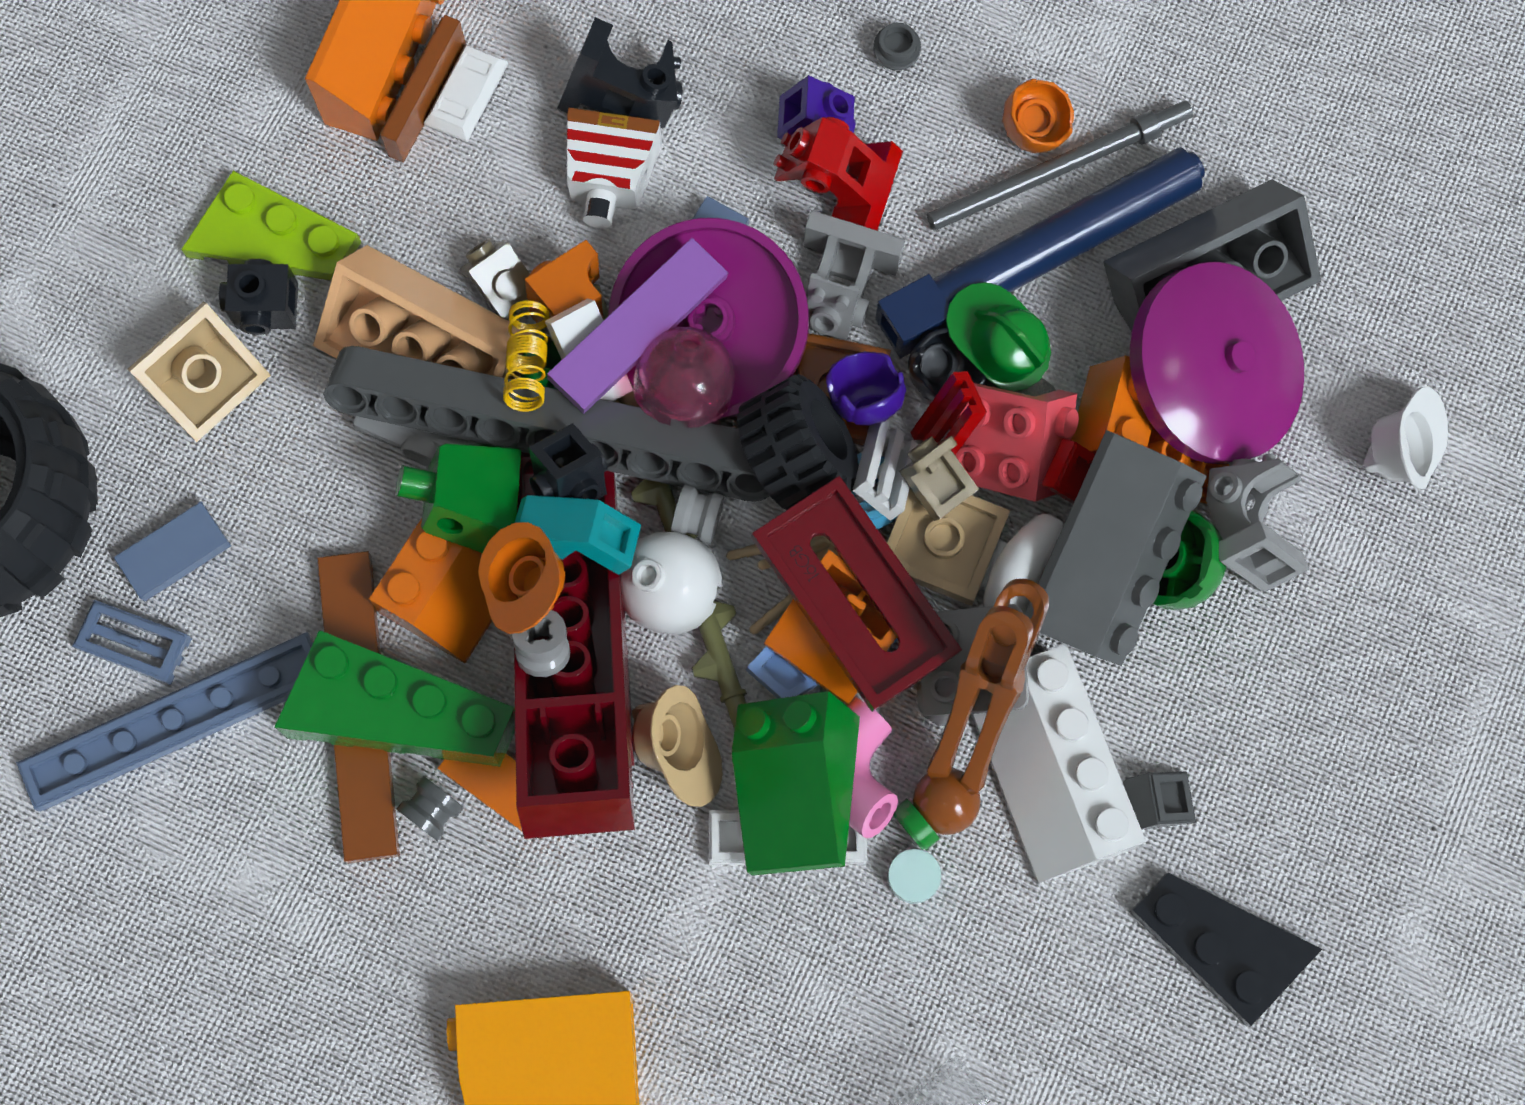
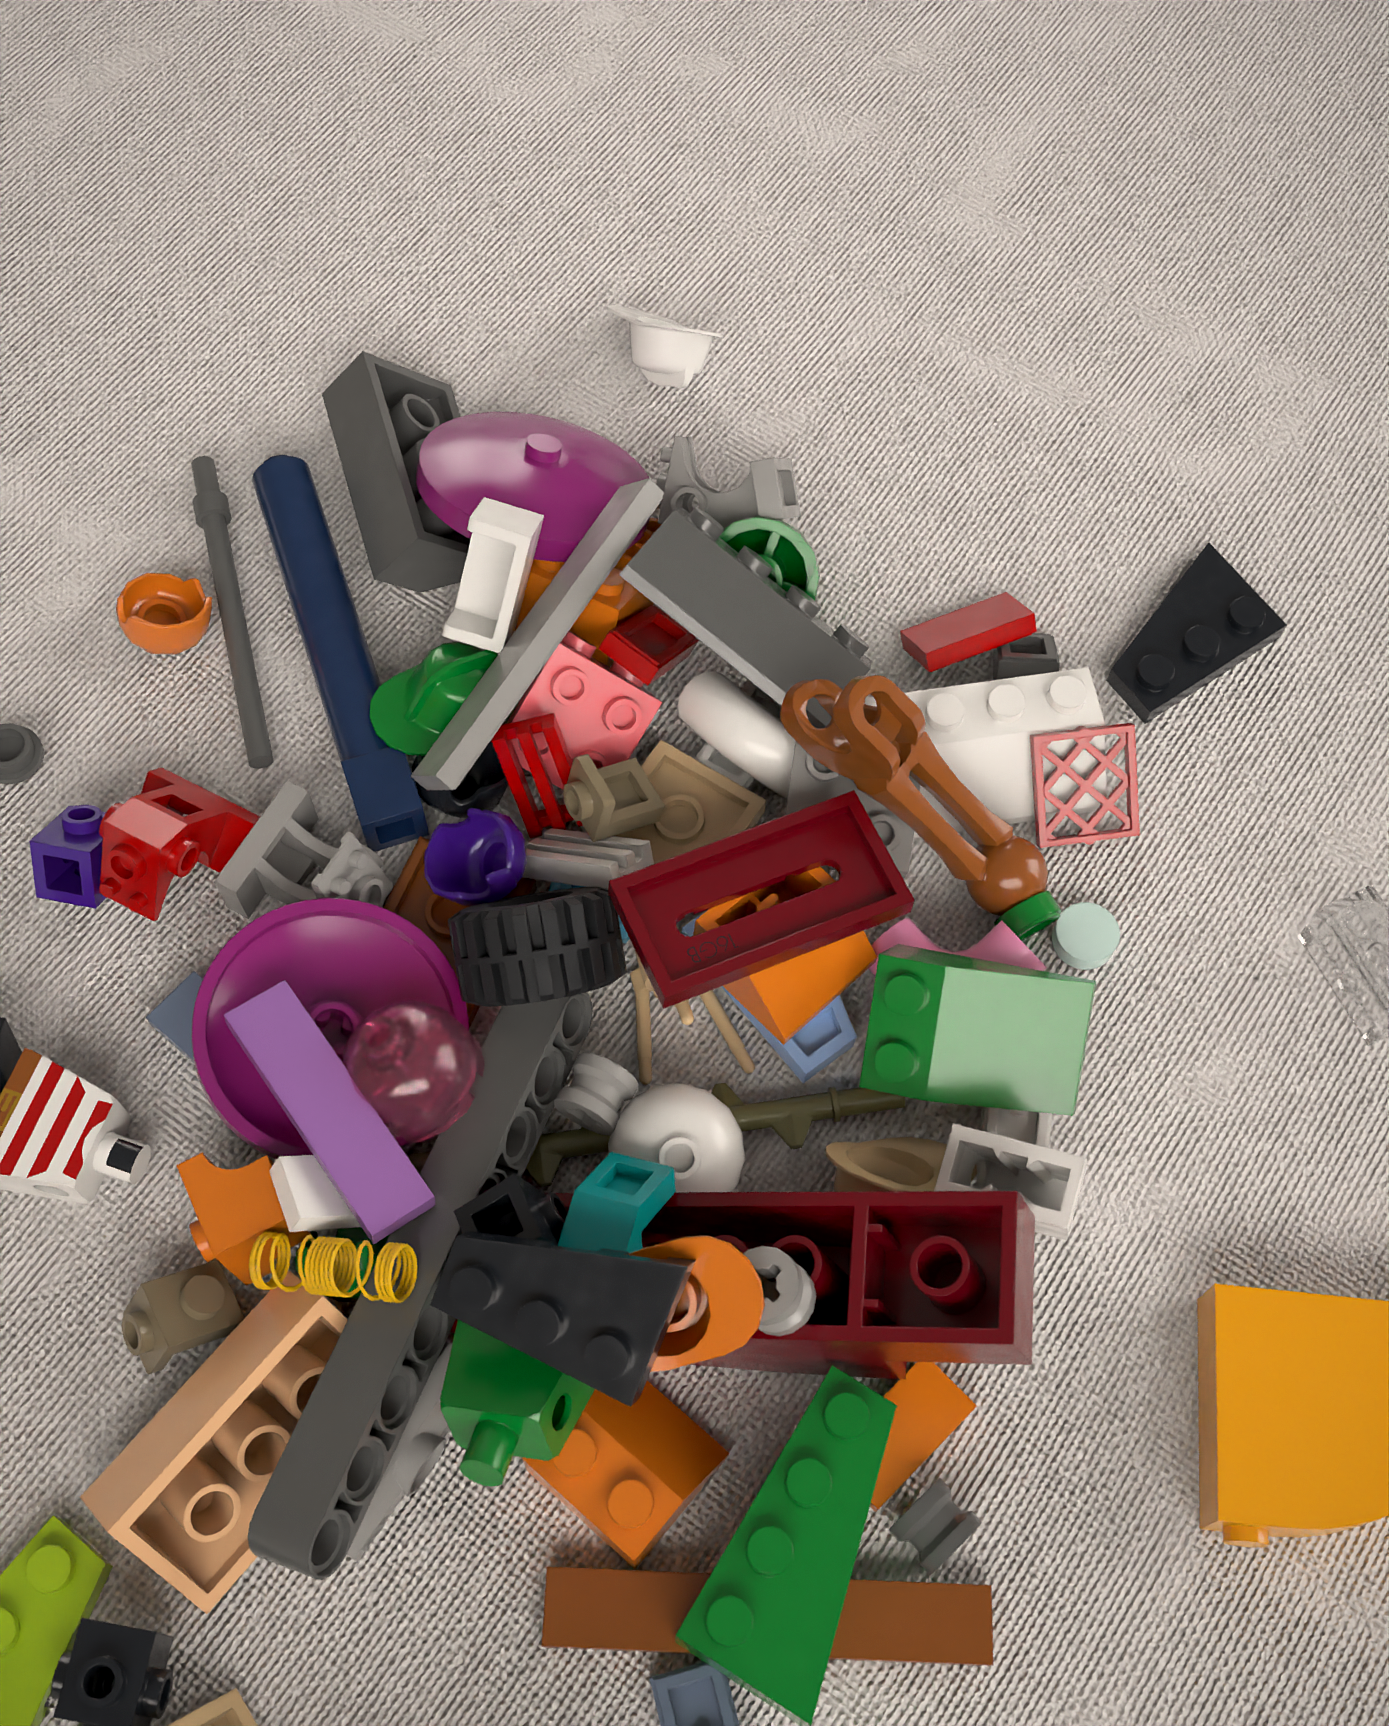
camera: 80 degrees left, 10 degrees down
(506, 510) = (566, 1306): none -> black wing
(671, 837) = (1042, 1176): none -> white torso
(1010, 869) = (1128, 782): none -> window
(1058, 388) = (537, 637): none -> light grey tile
(1102, 345) = (494, 575): none -> white panel
(1175, 745) = (968, 631): none -> tile

